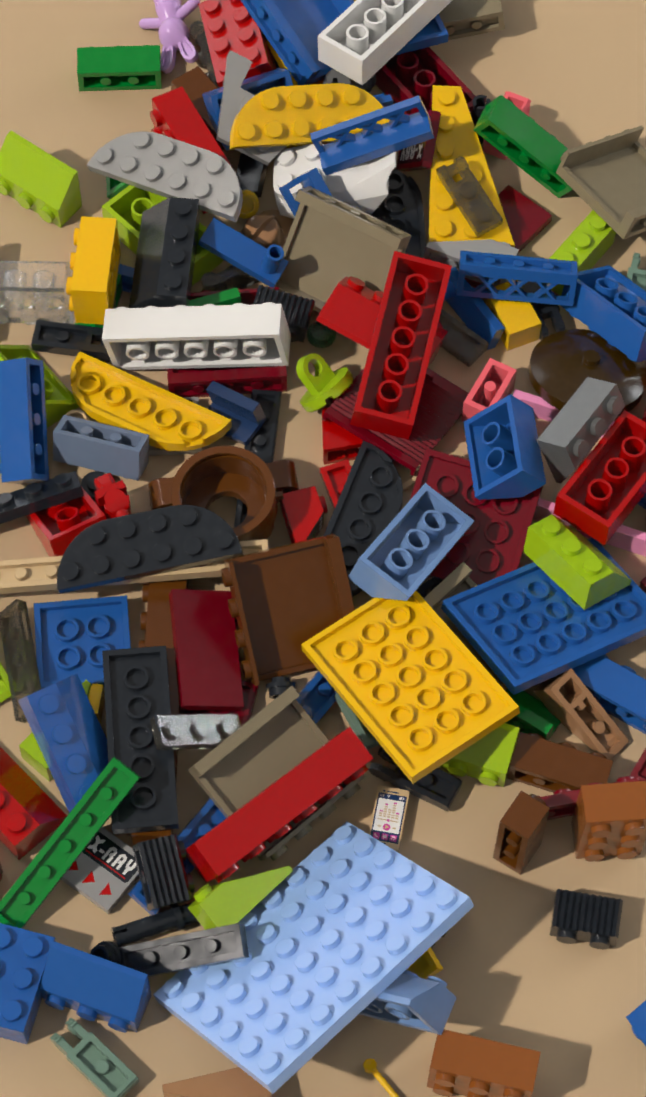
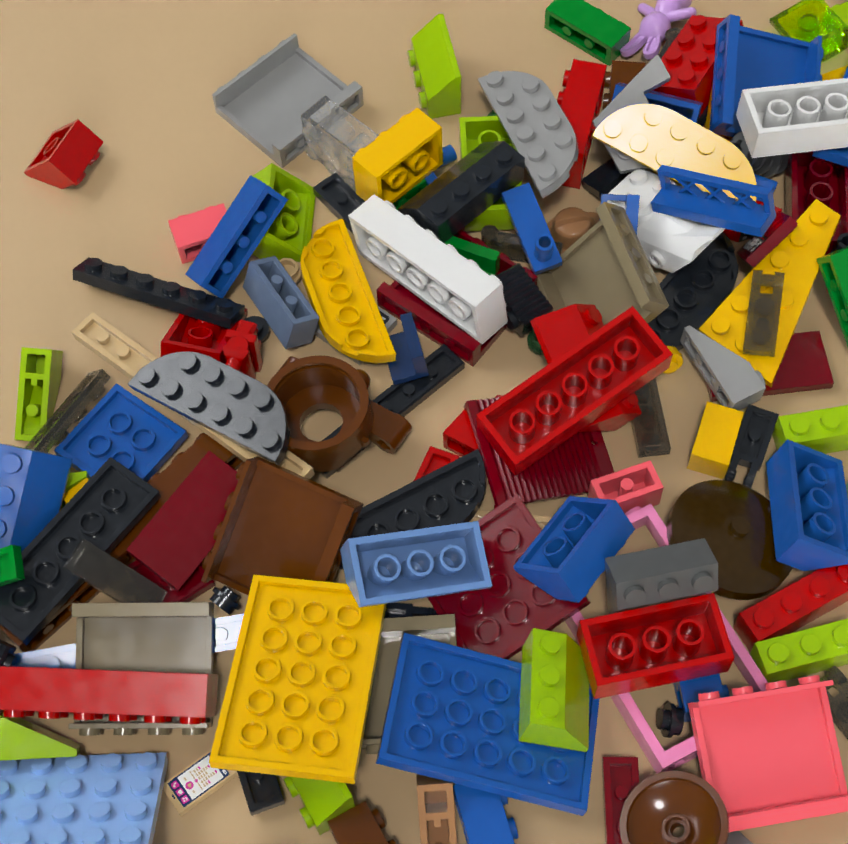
camera: 45 degrees right, 0 degrees up
(250, 204) = (582, 195): yellow plate -> none
(303, 513) = (378, 474): red slope -> none
(324, 384) = (492, 381): lime tile -> none
(474, 312) = (683, 406): blue piece -> none
(517, 268) = (741, 404): blue fence -> none
(533, 716) = (396, 794): green panel -> none

